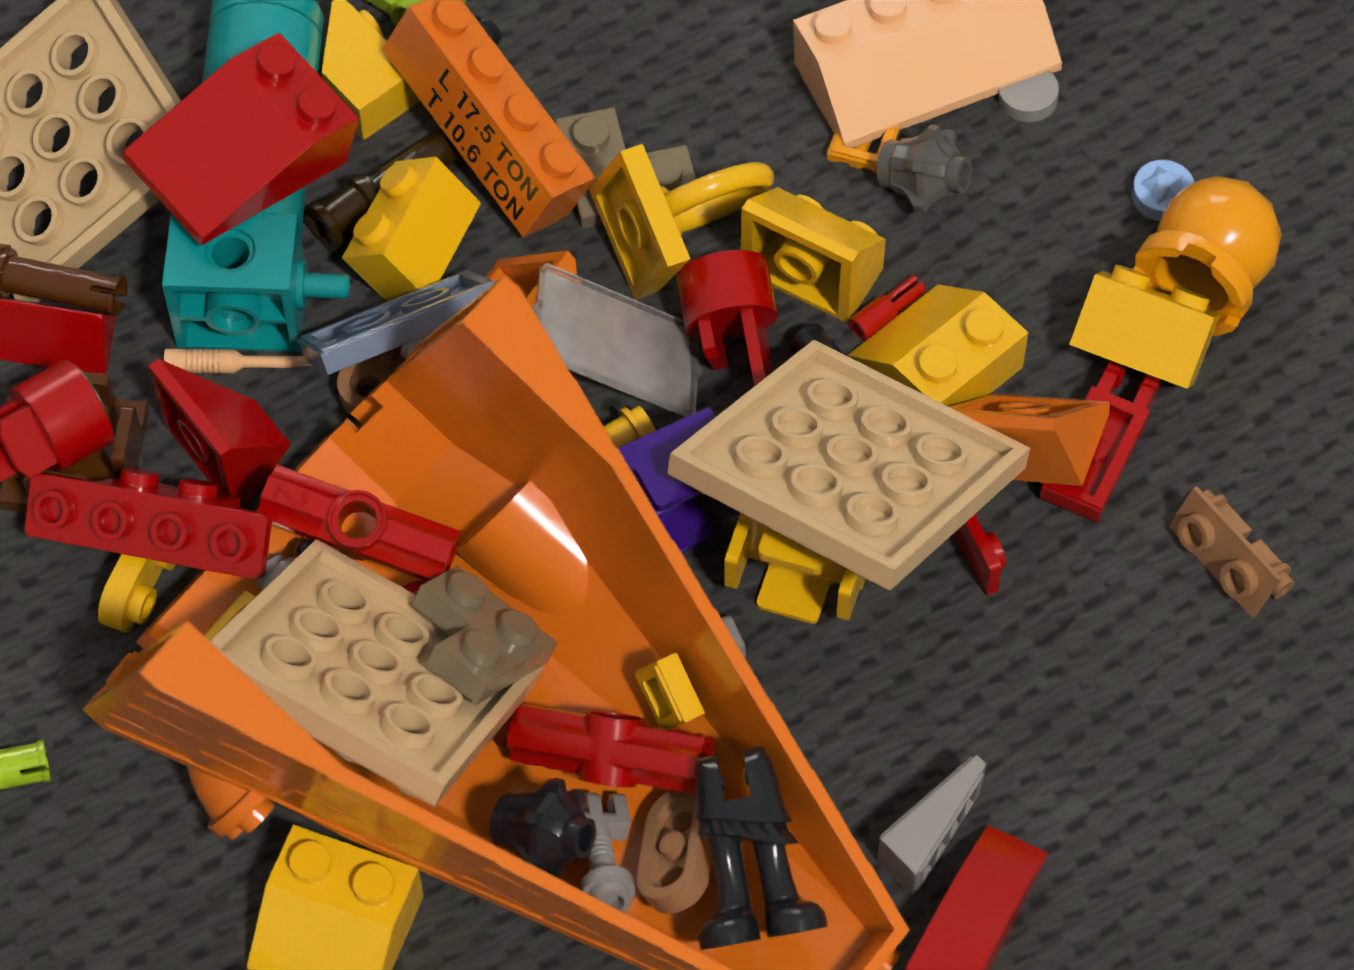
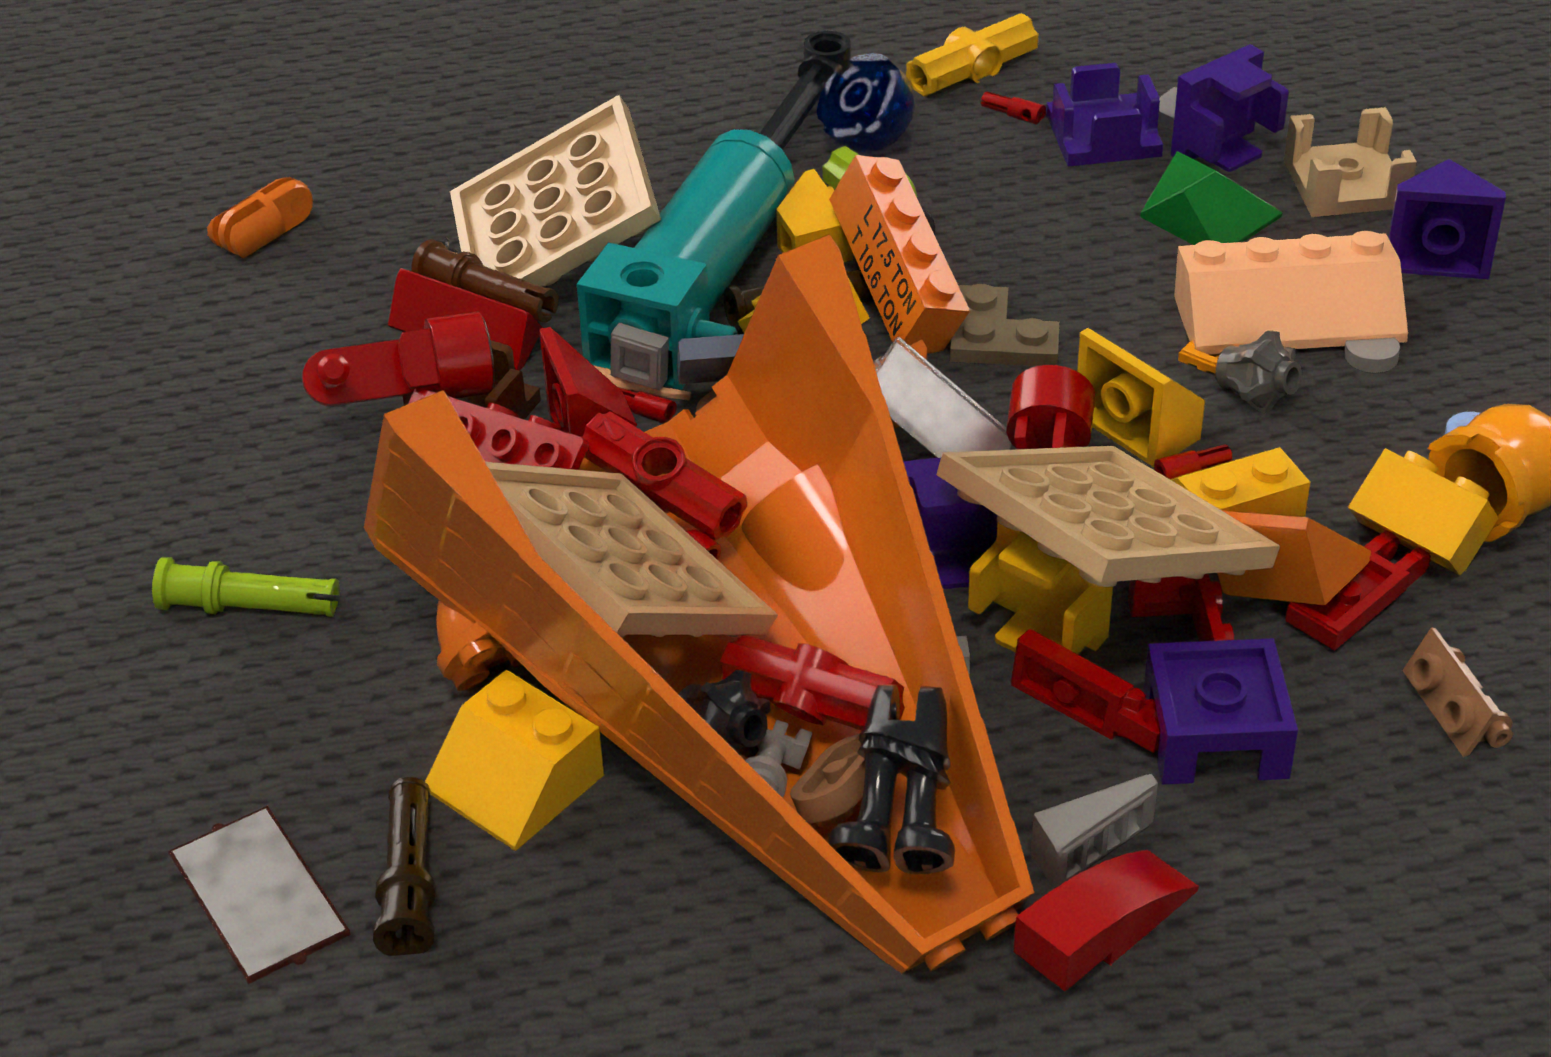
camera: 20 degrees right, 20 degrees down
(244, 140) = (686, 201): red slope -> none
(249, 337) = (639, 356): none -> light grey tile
(267, 387) = (650, 405): none -> red pin
(488, 638) = (725, 566): dark tan plate -> none
(649, 220) = (999, 336): yellow tile -> none
(669, 692) = (880, 644): yellow tile -> none
(879, 658) = (1084, 691): none -> red hinge
(1013, 642) = (1220, 700): none -> dark purple panel

